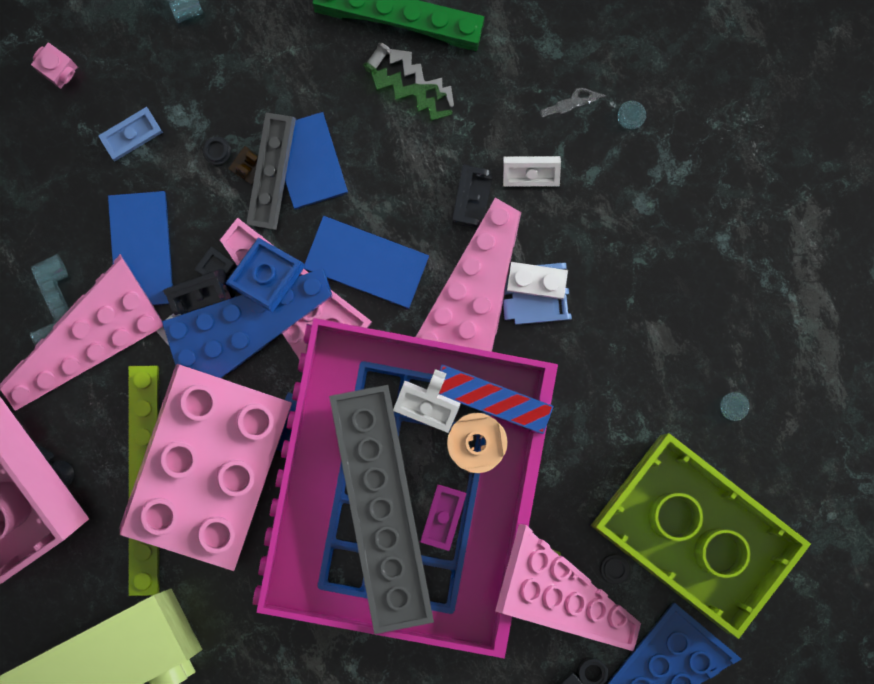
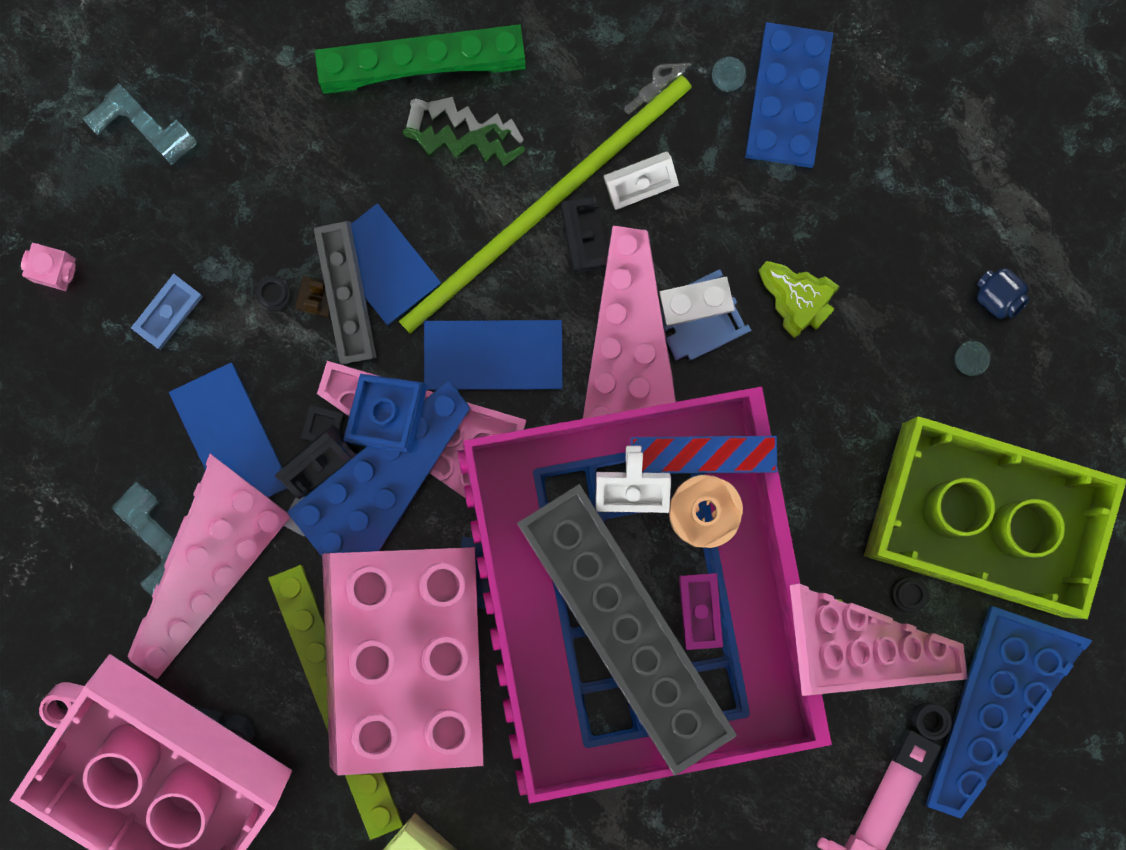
camera: 25 degrees left, 0 degrees up
(451, 161) = (545, 204): none -> lime piece
(618, 307) = (798, 297): none -> lime rock
(672, 149) = (789, 95): none -> blue plate
(777, 365) = (1003, 293): none -> dark blue head

